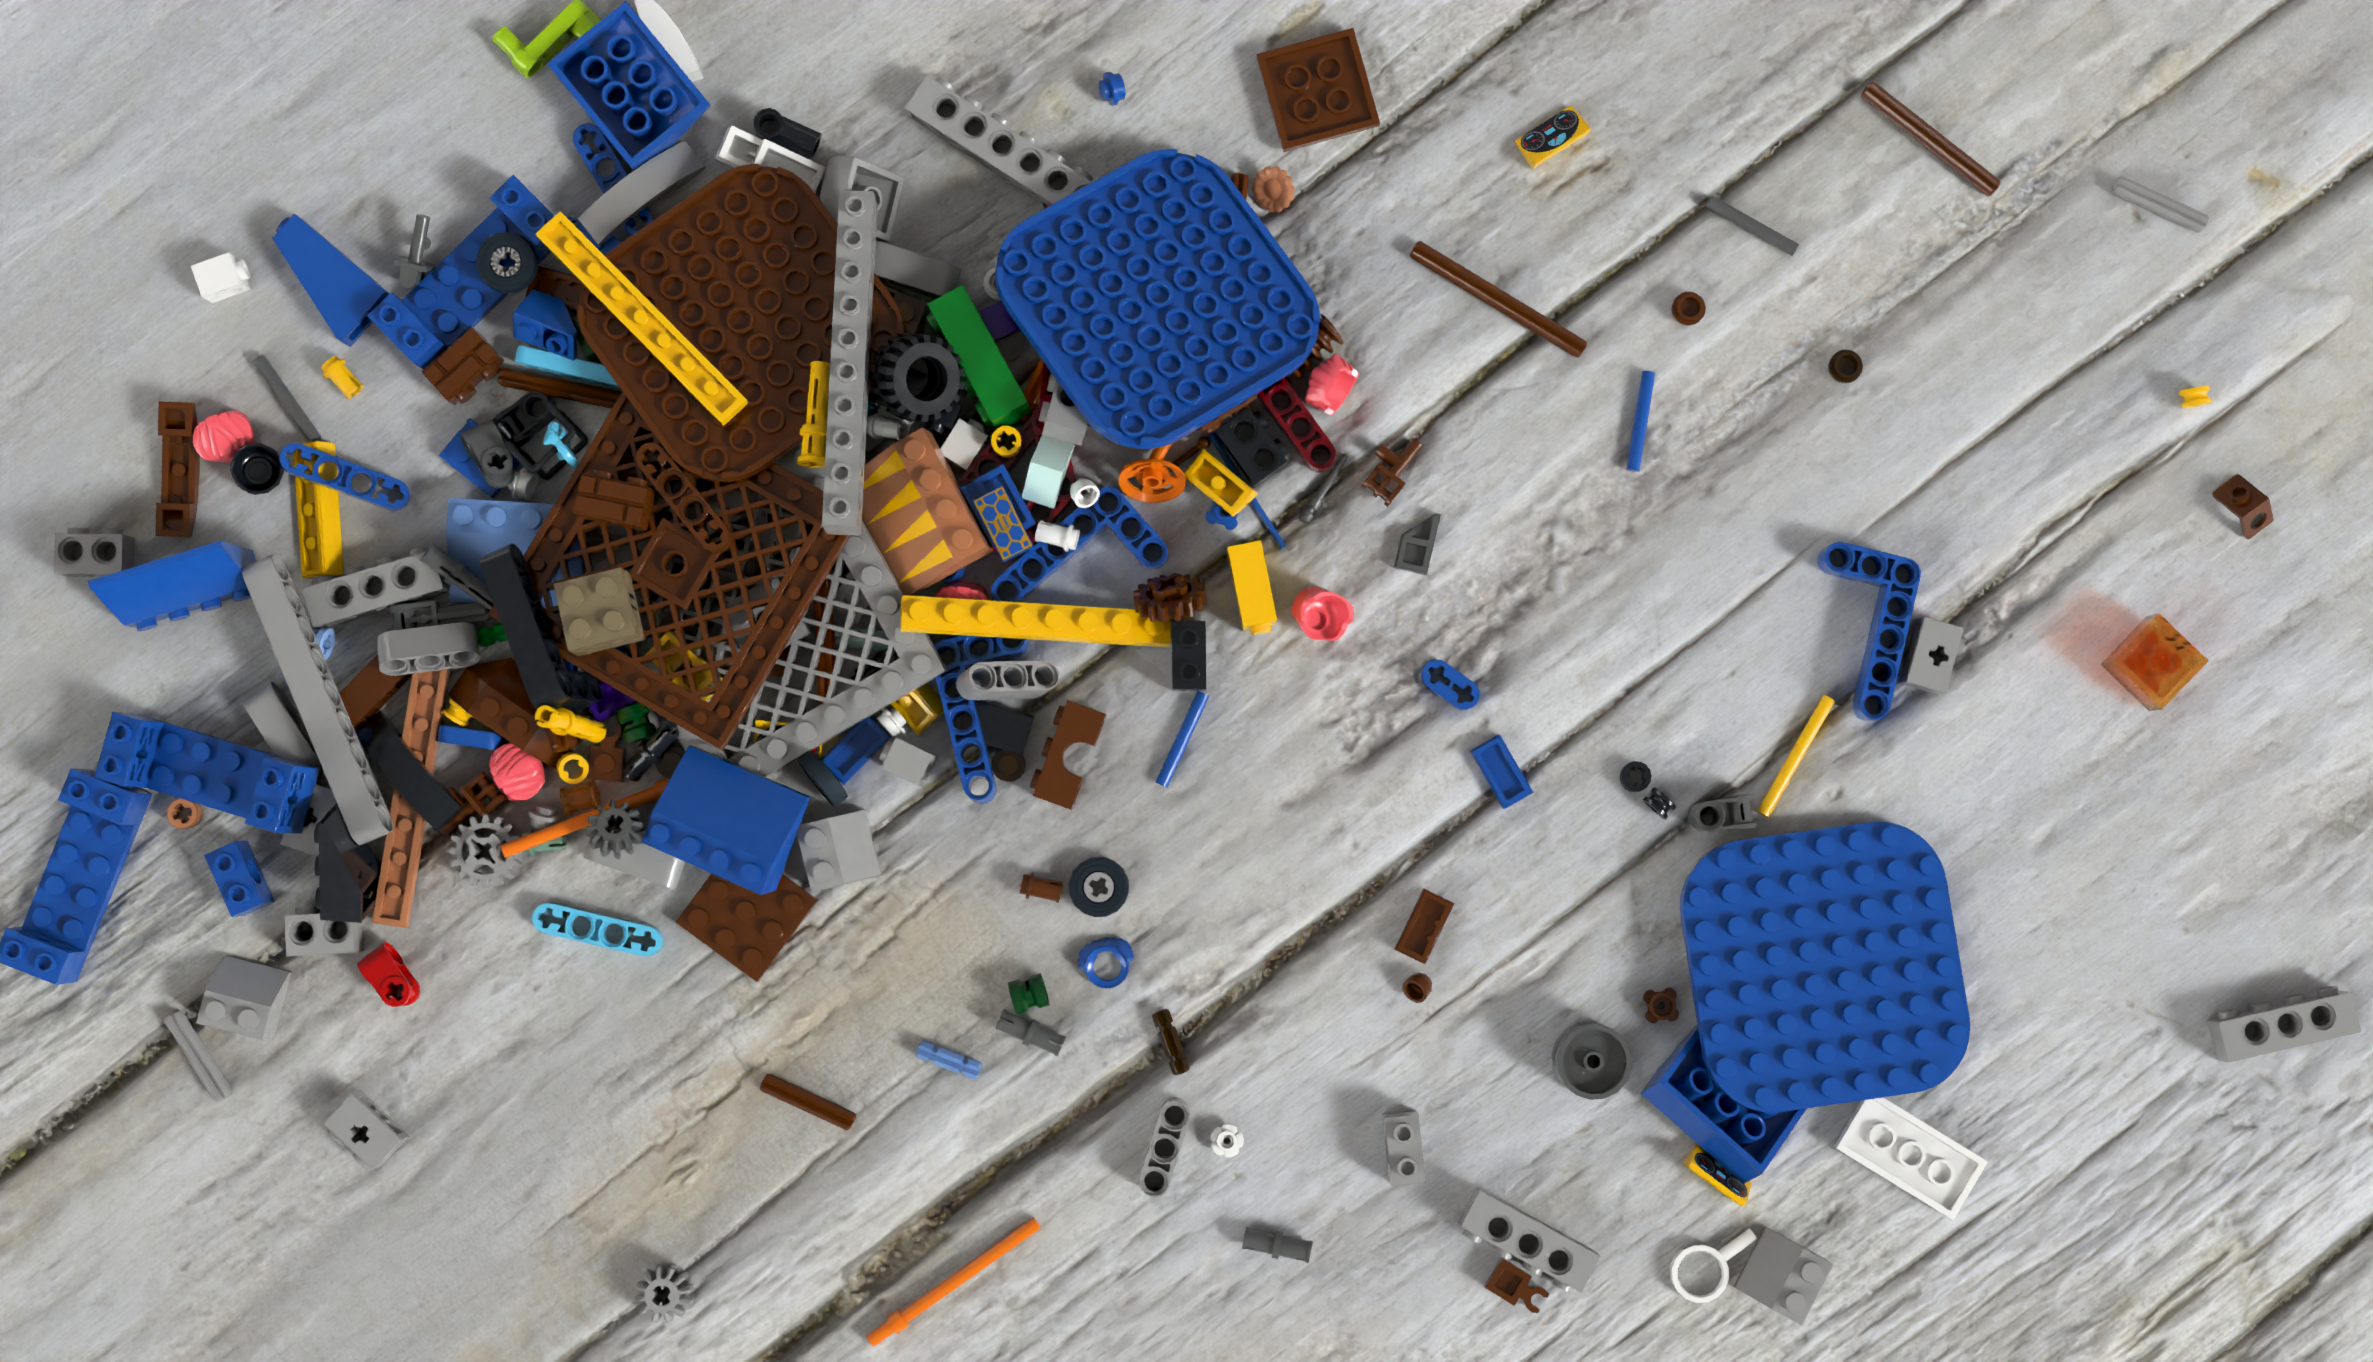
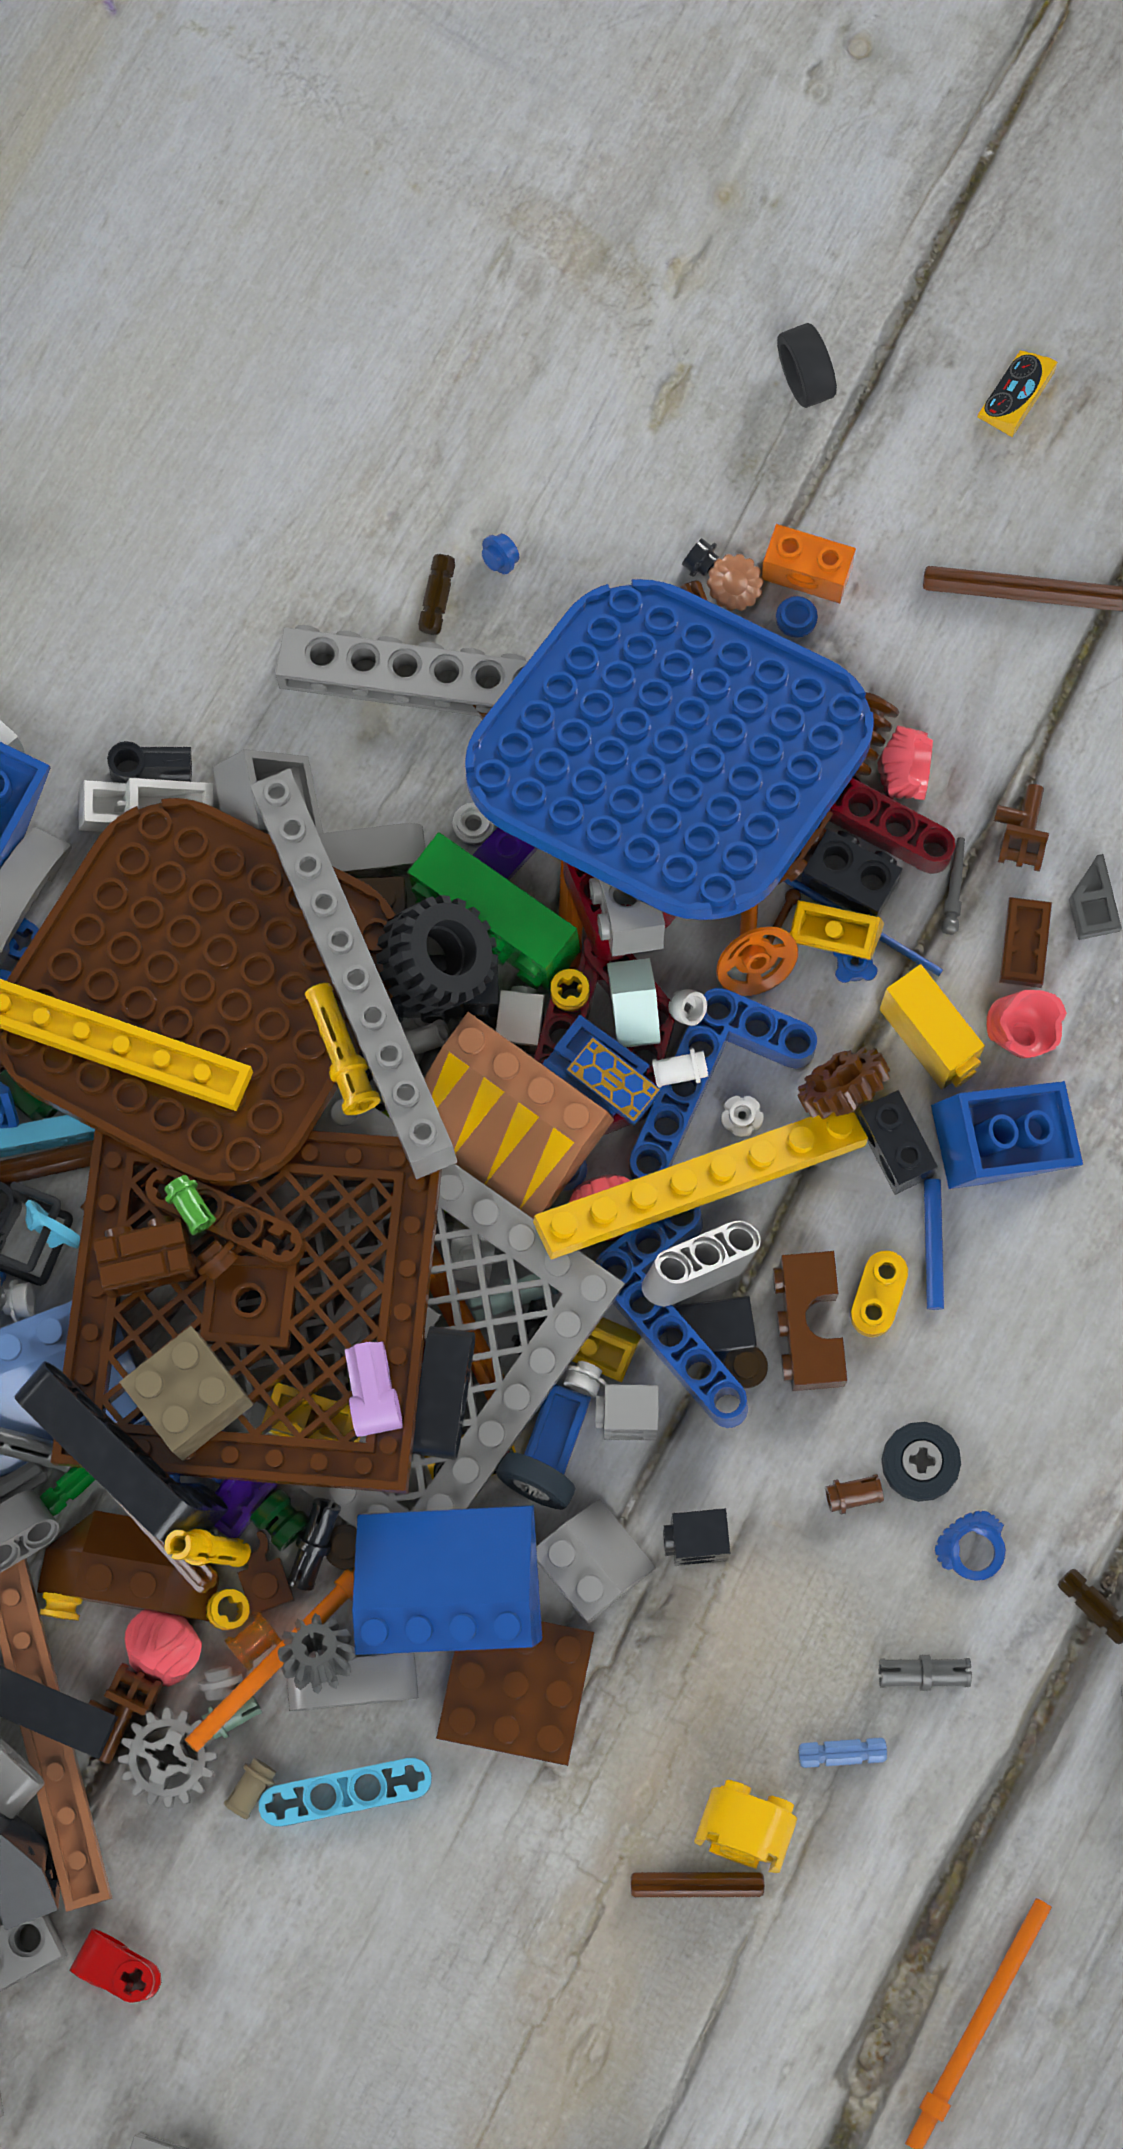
camera: 25 degrees left, 10 degrees down
(469, 737) = (86, 1629): blue beam -> none
(536, 895) = (250, 1788): none -> dark tan pin
(660, 478) = (189, 1204): none -> bright green pin
(662, 525) = (216, 1259): none -> reddish brown plate
(725, 679) = (374, 1402): none -> lavender piece
(783, 689) = (443, 1392): none -> black beam
(856, 1081) = (747, 1826): none -> yellow brick
(914, 870) = (697, 1537): none -> black brick
(1028, 993) = (900, 1626): dark green wheel -> none
(1053, 97) = (436, 594): none -> dark brown axle
(1081, 585) = (738, 1126): none -> white plate
(1128, 758) = (879, 1292): none -> yellow plate
(1257, 159) = (700, 558): none -> black plate
(1270, 686) = (1006, 1134): none -> blue slope
(1306, 235) = (796, 616): none -> blue plate
(1318, 90) = (732, 455): reddish brown plate -> none
(1332, 199) = (808, 563): none -> orange brick
(1352, 553) = (1025, 942): none -> reddish brown plate
(1403, 47) = (806, 365): none -> black tyre

